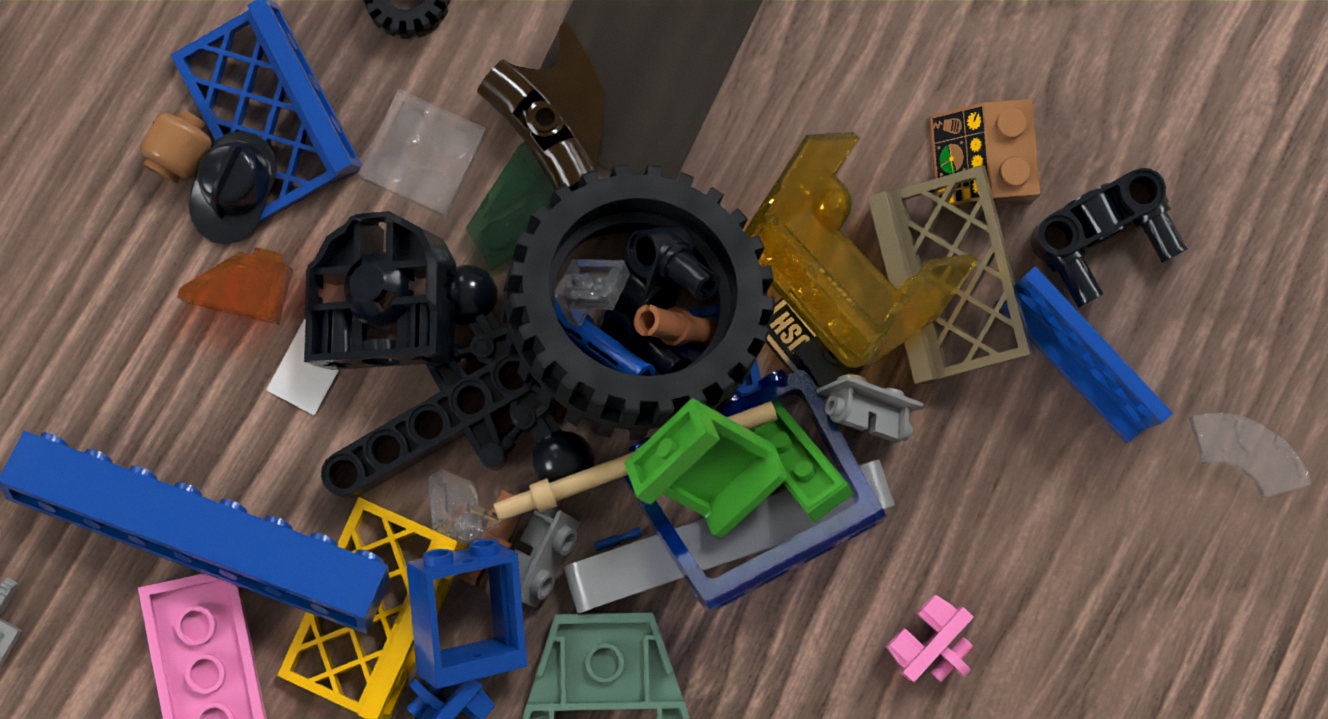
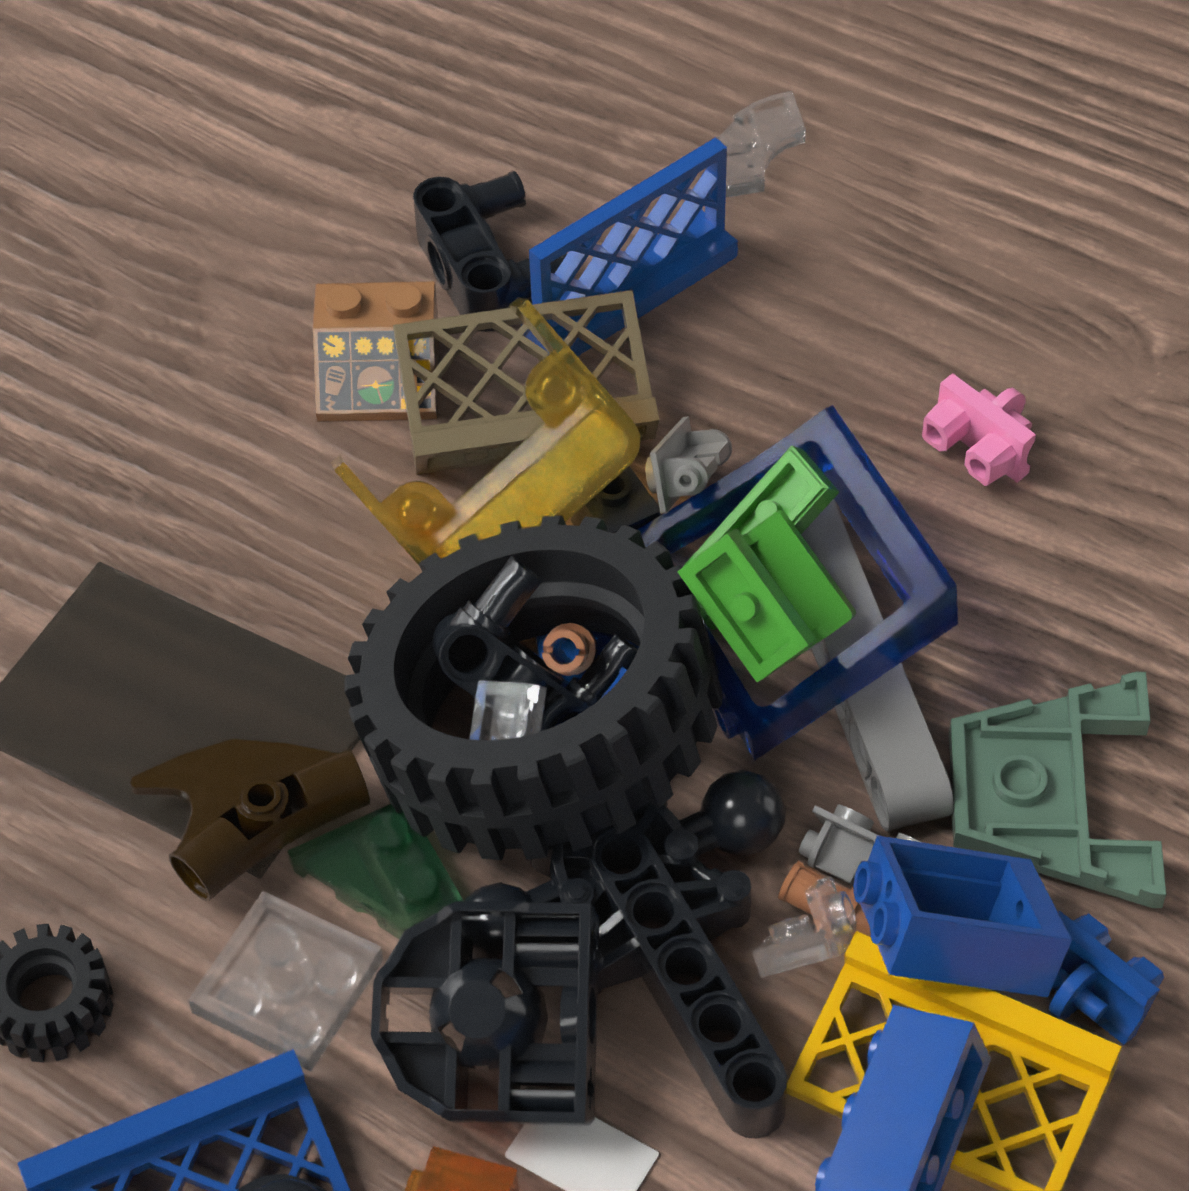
camera: 80 degrees left, 30 degrees down
(545, 494) = (791, 808): tan bar -> none
(616, 539) = (848, 773): blue piece -> none

